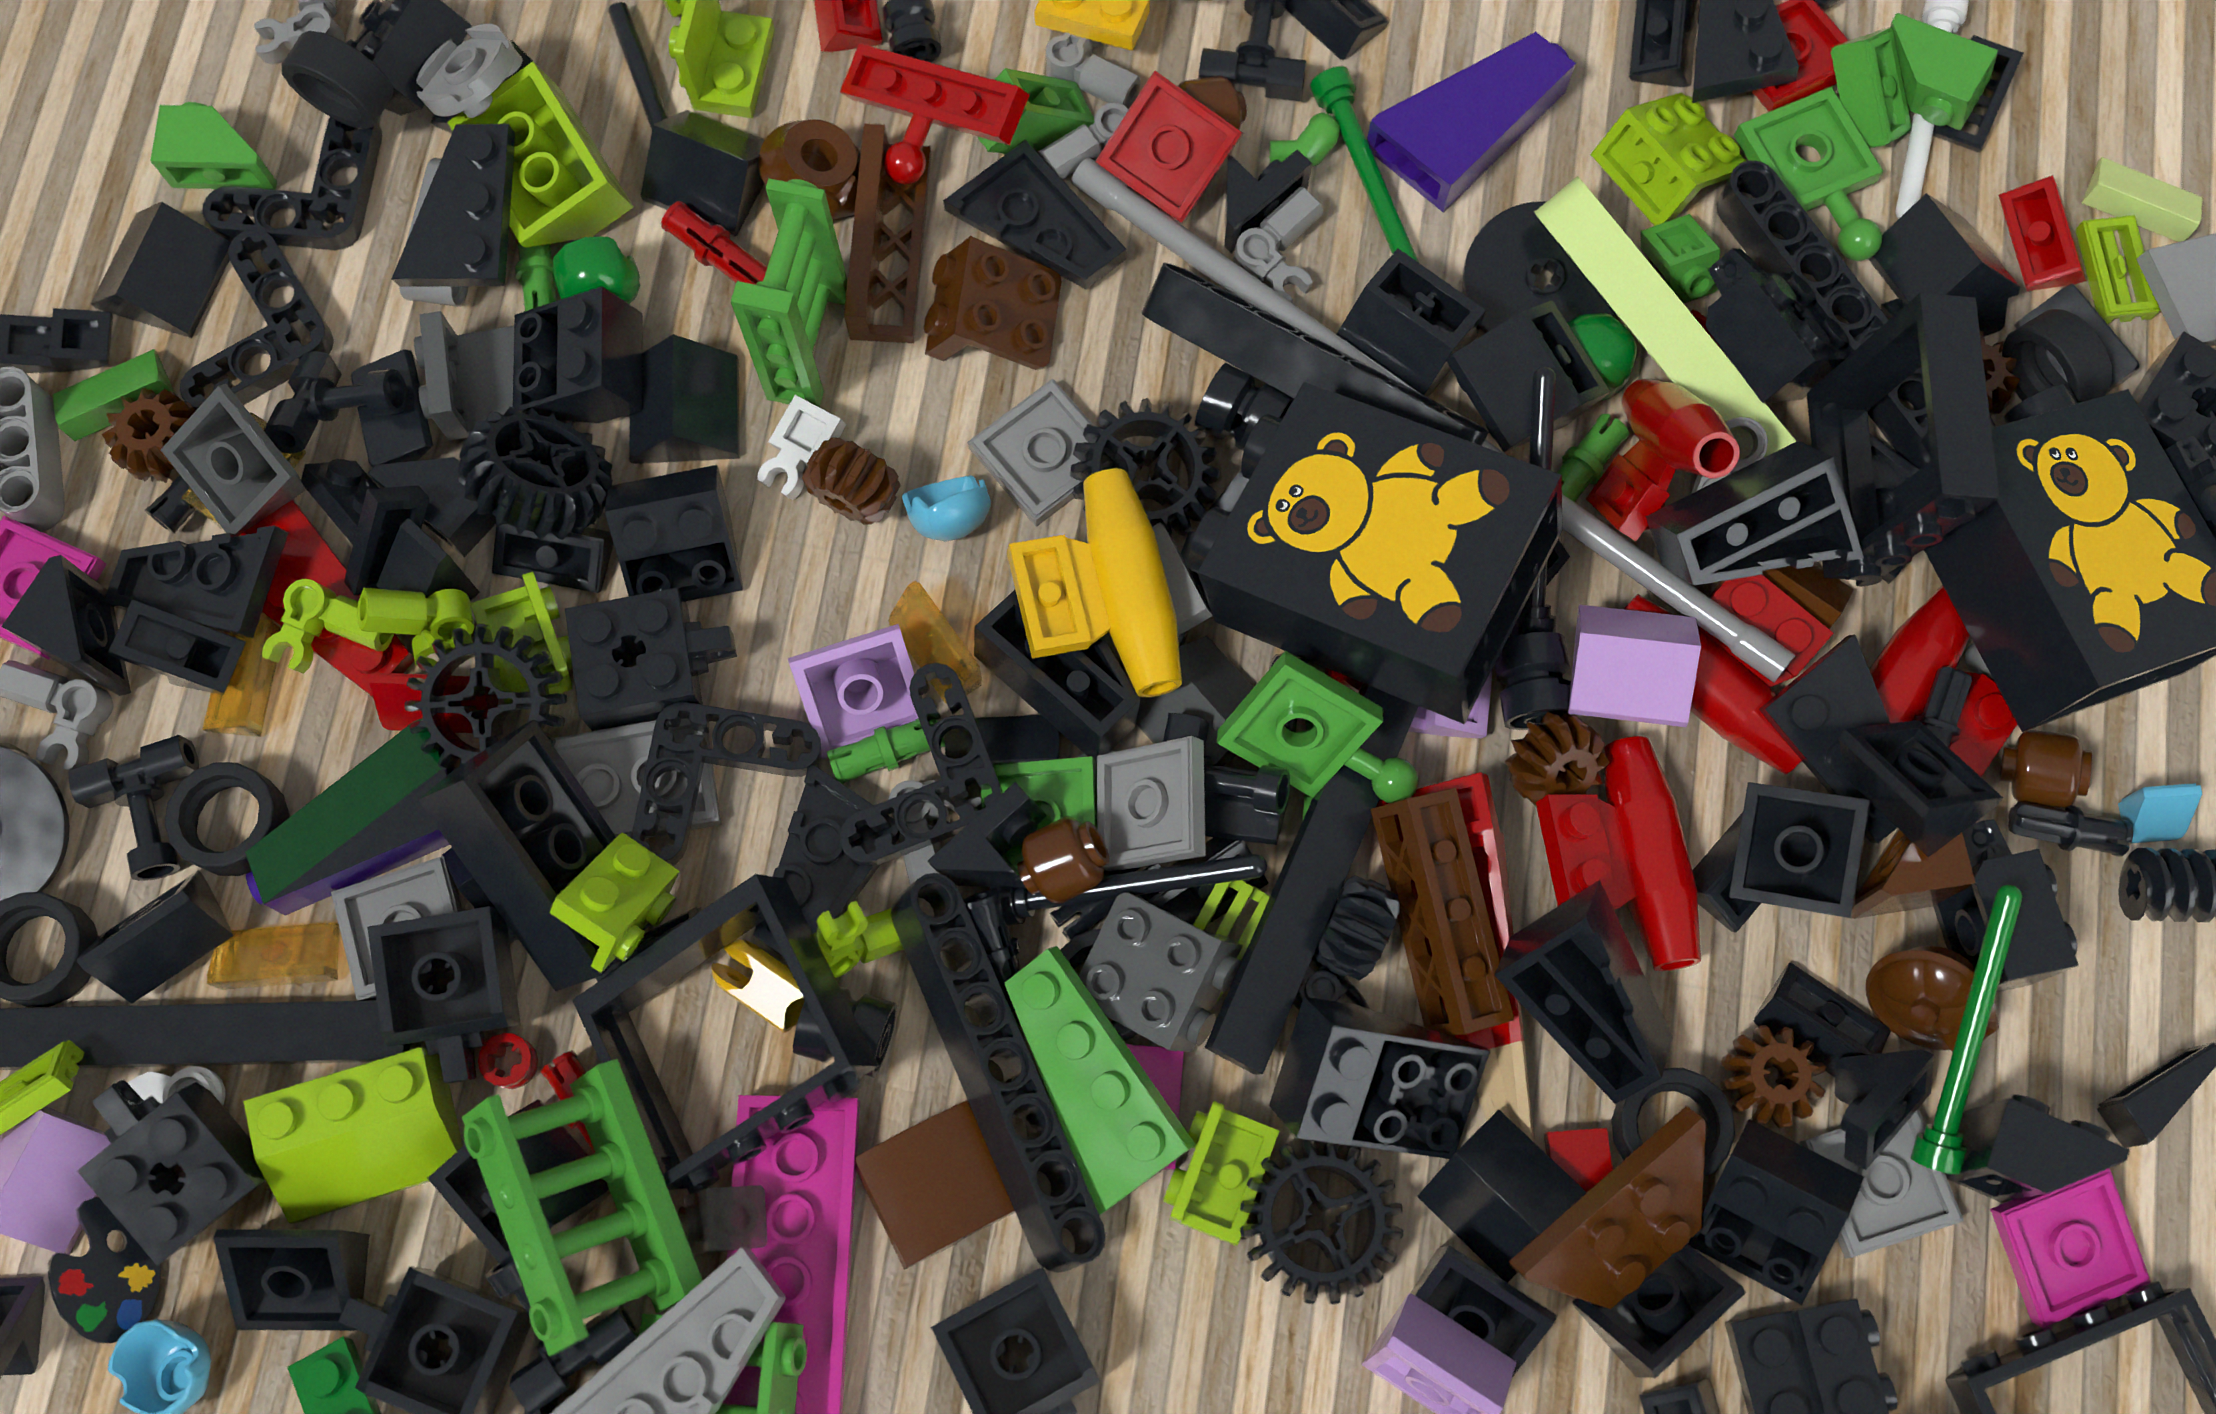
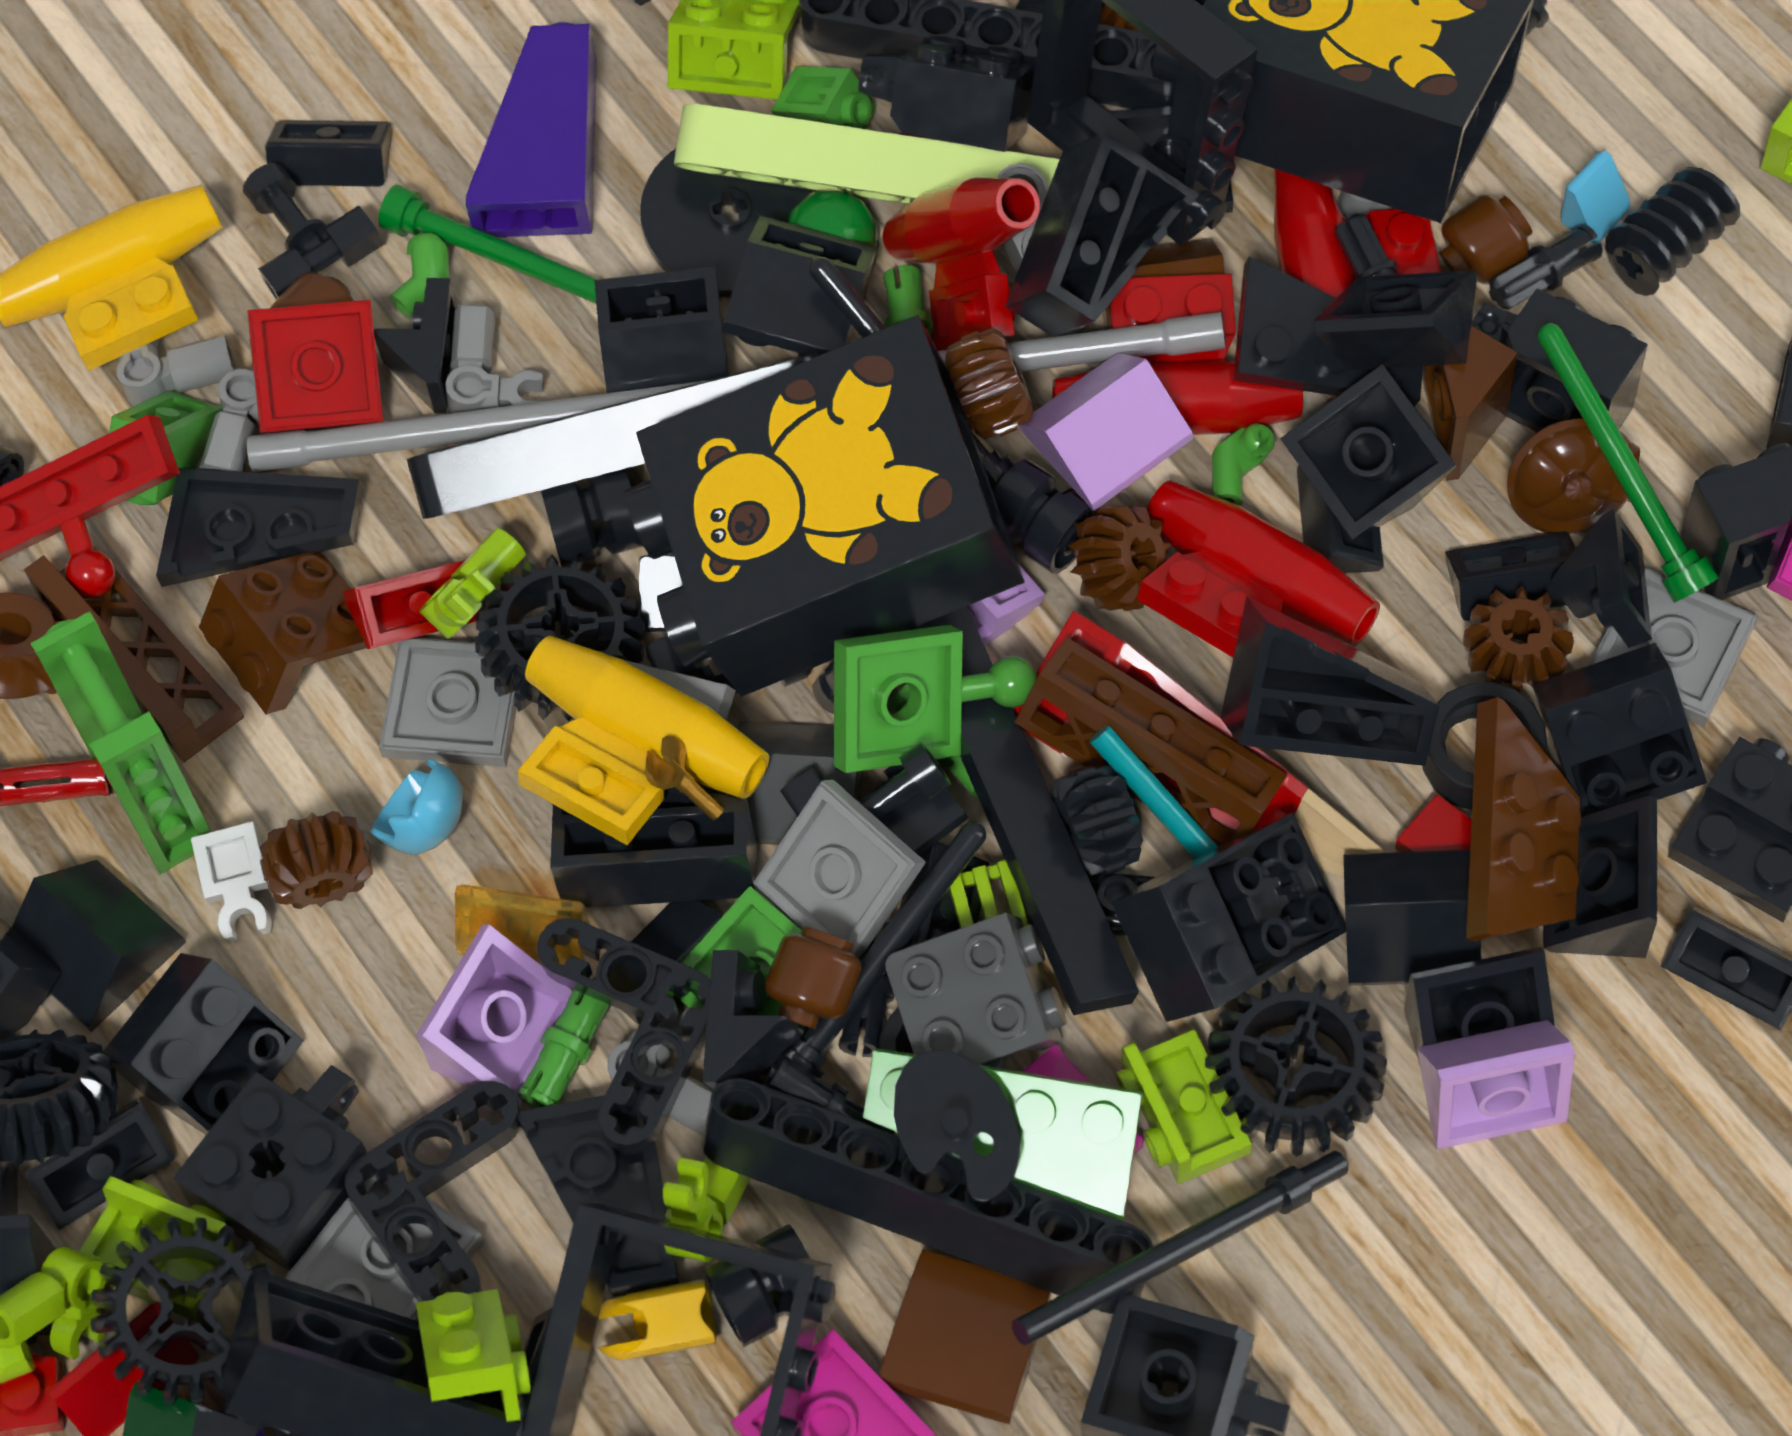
camera: 40 degrees left, 10 degrees down
(1051, 1032) = (941, 1109): none -> black piece
(1080, 365) = (390, 608): none -> red slope
(1100, 634) = (671, 774): none -> pearl gold hand
(1133, 383) = (473, 580): none -> lime bar
(1226, 1297) = (1281, 1193): none -> black bar
(1410, 947) = (1152, 792): none -> teal bar
(1581, 560) = (989, 383): none -> reddish brown gear
(1709, 761) = (1238, 457): none -> bright green arm

